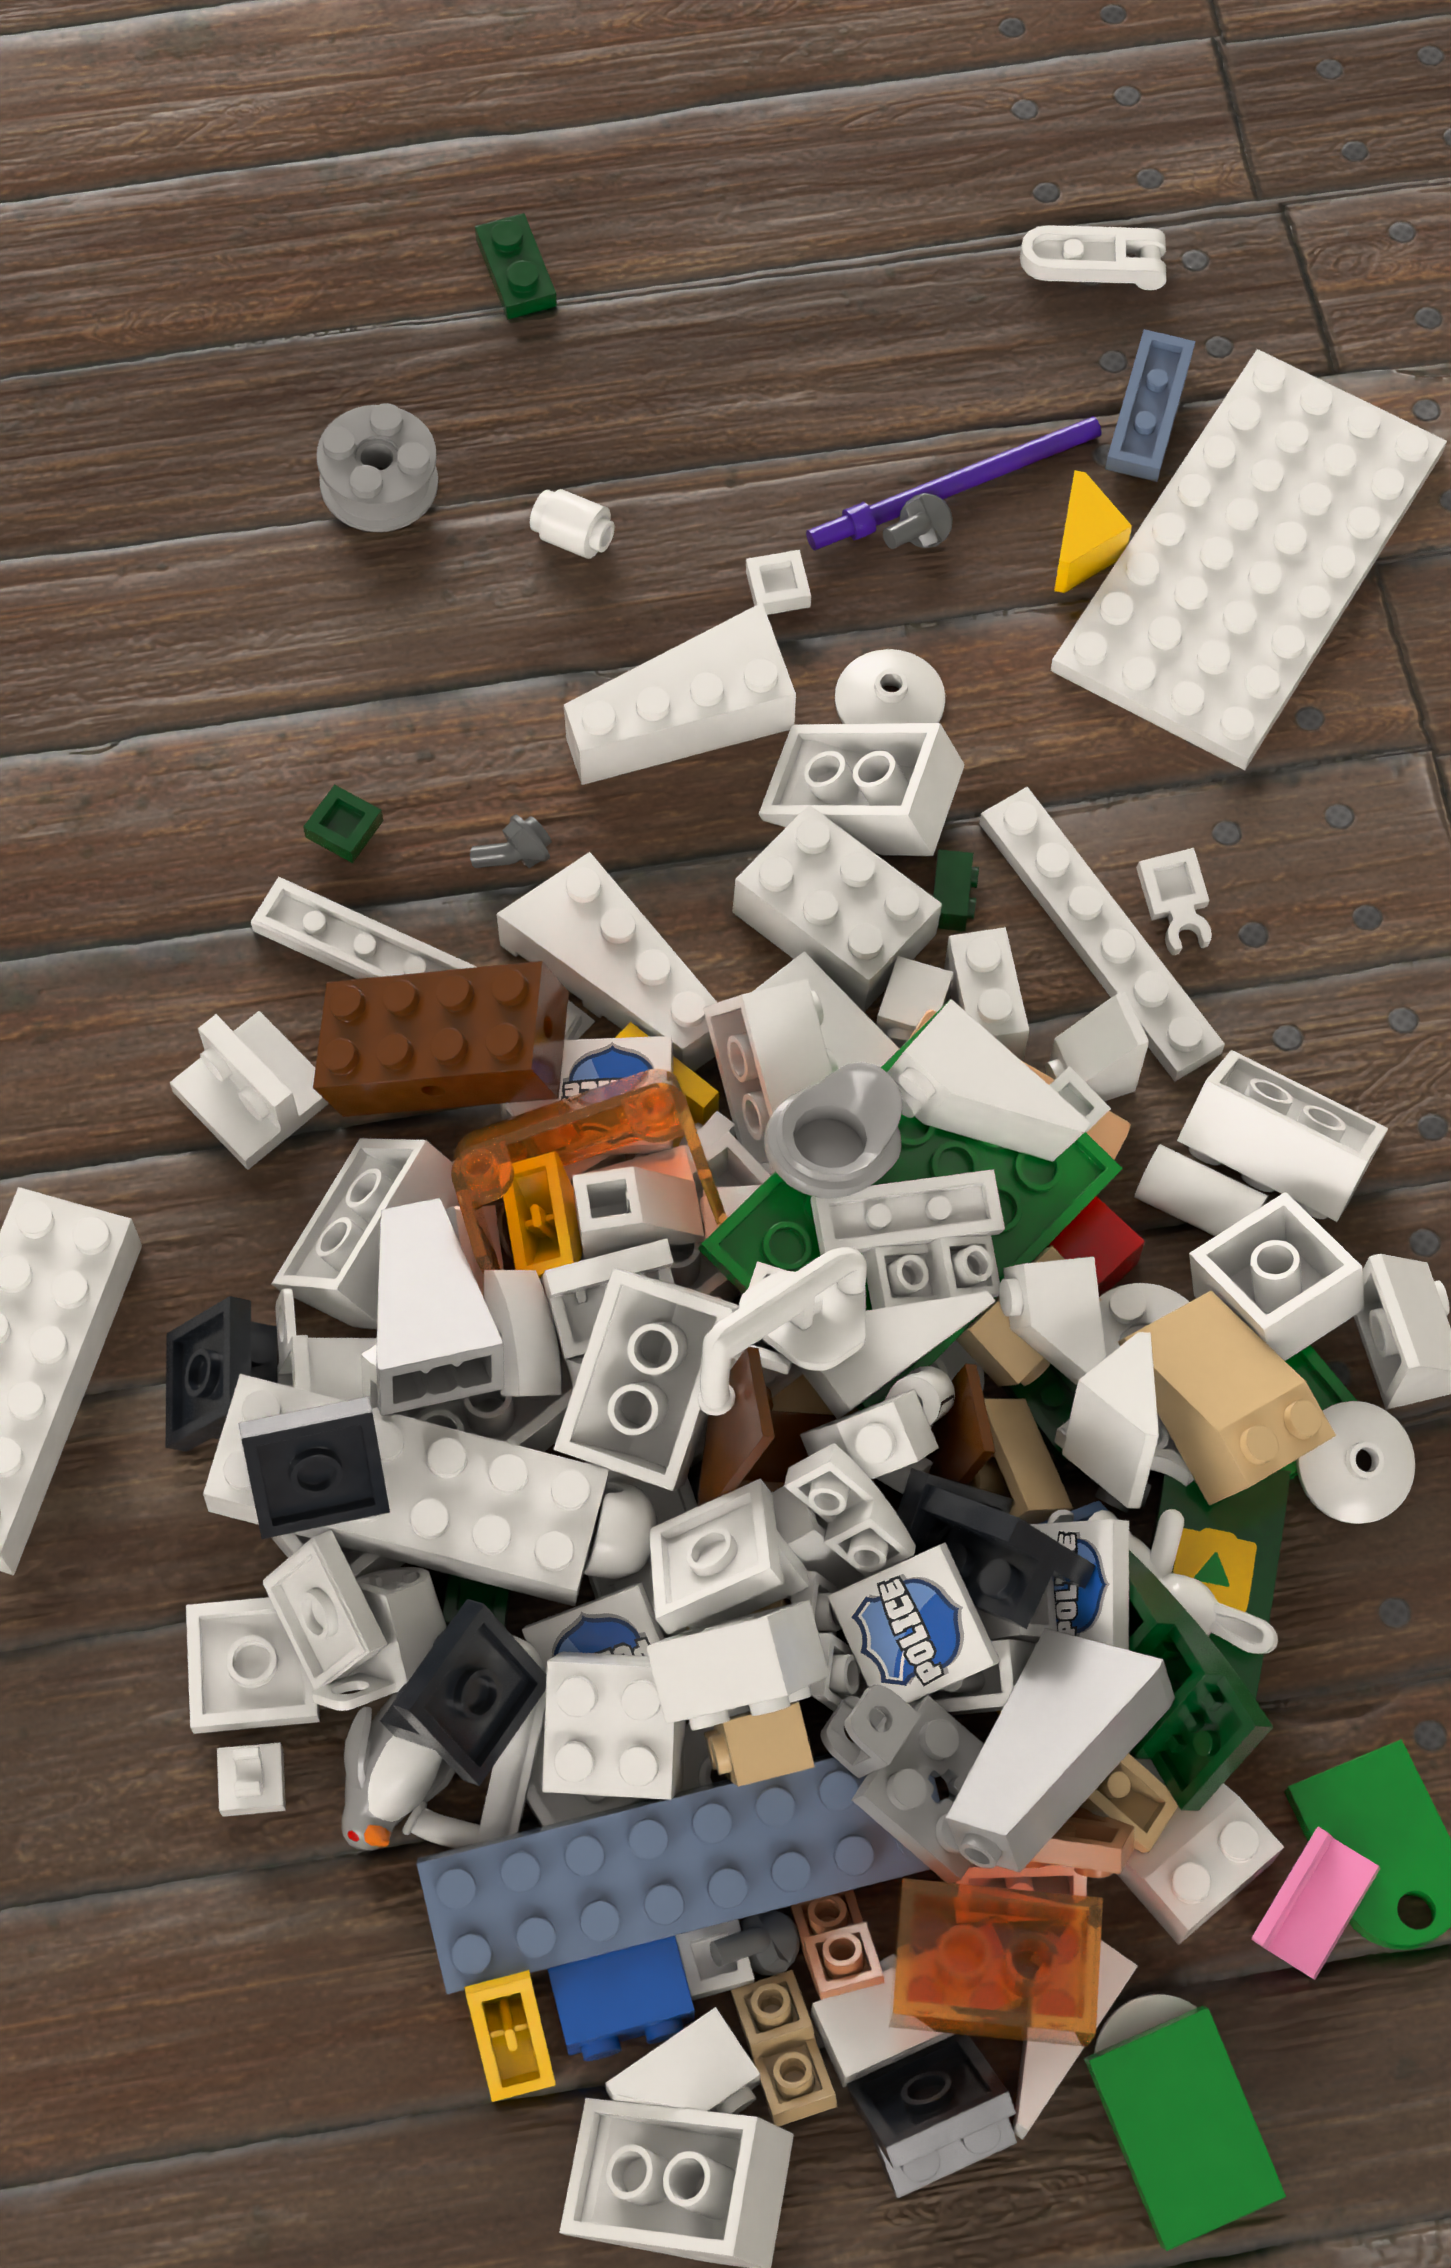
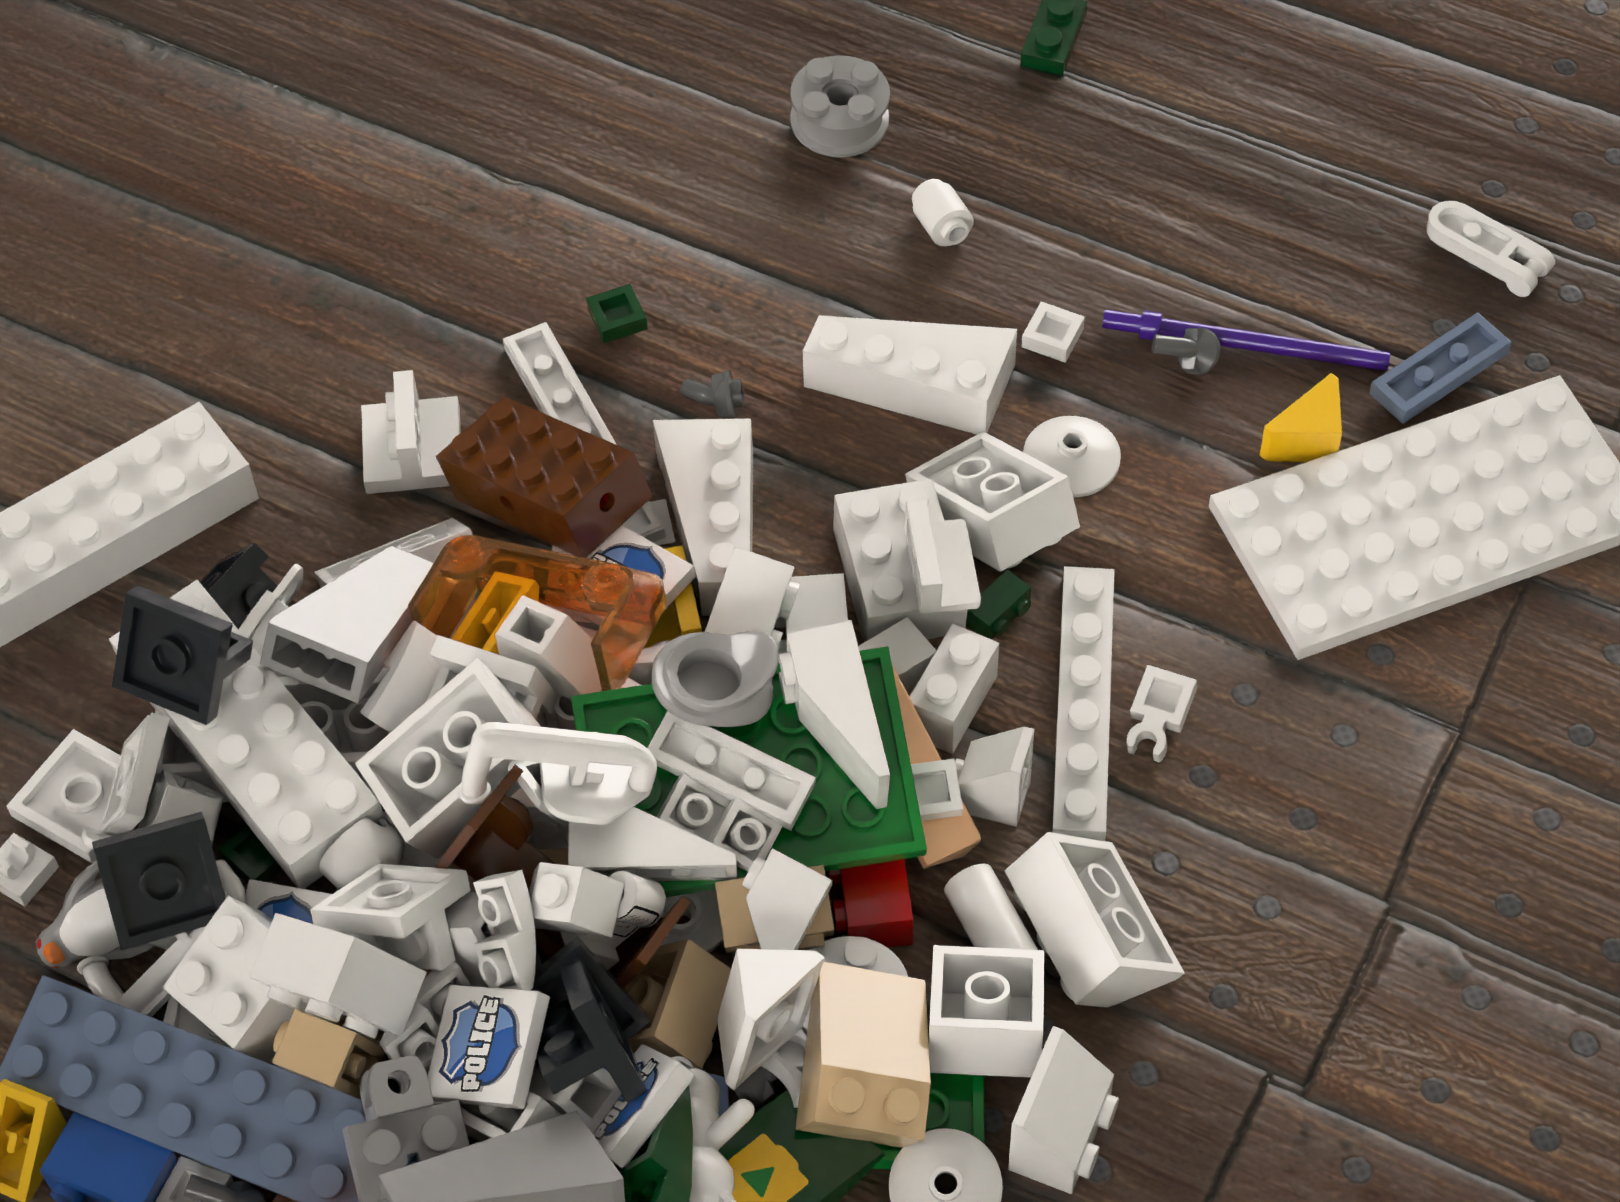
camera: 40 degrees right, 10 degrees down
(896, 883) = (940, 561): none -> white panel

